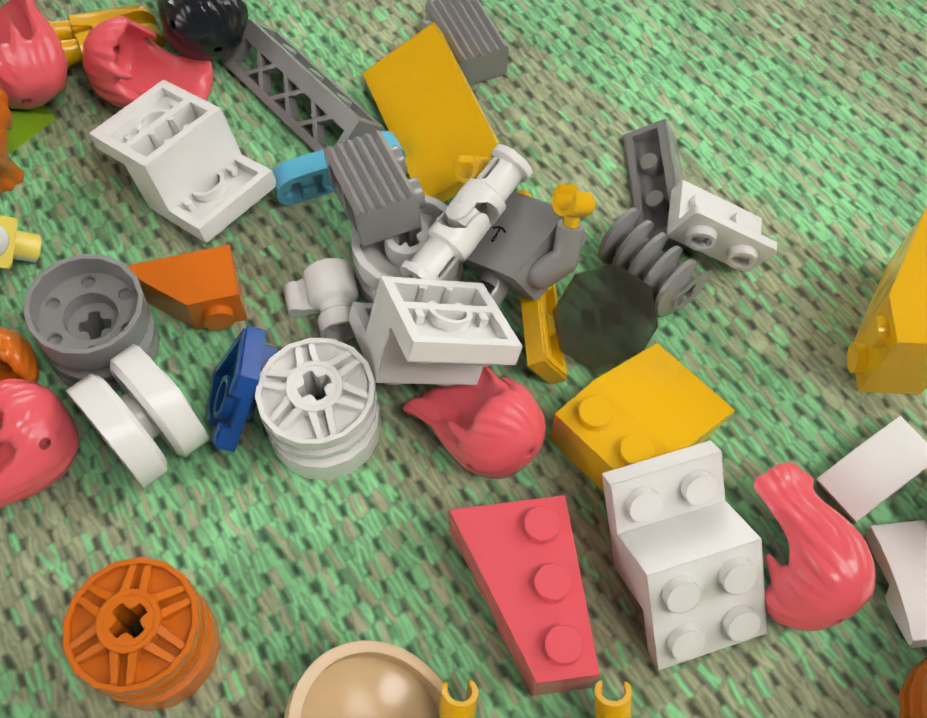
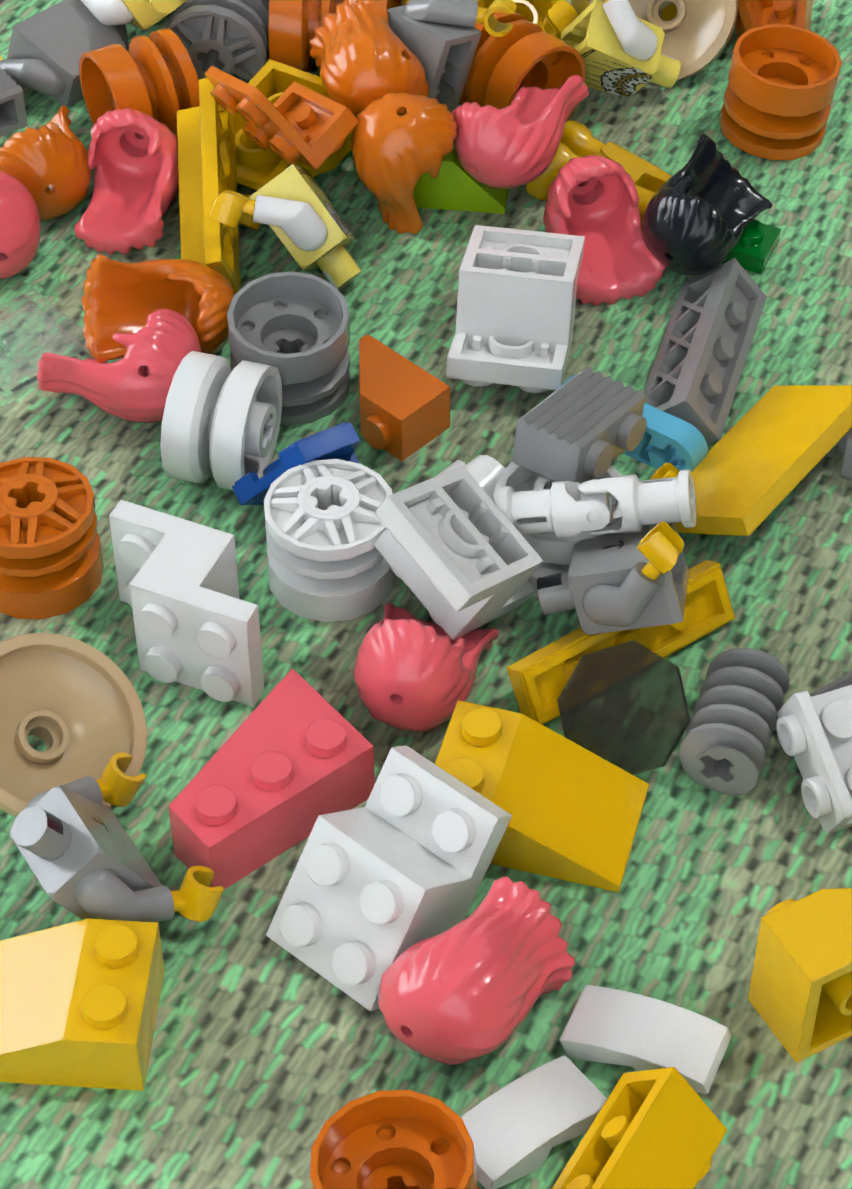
camera: 60 degrees right, 15 degrees down
(321, 553) = (187, 603): none -> white bracket

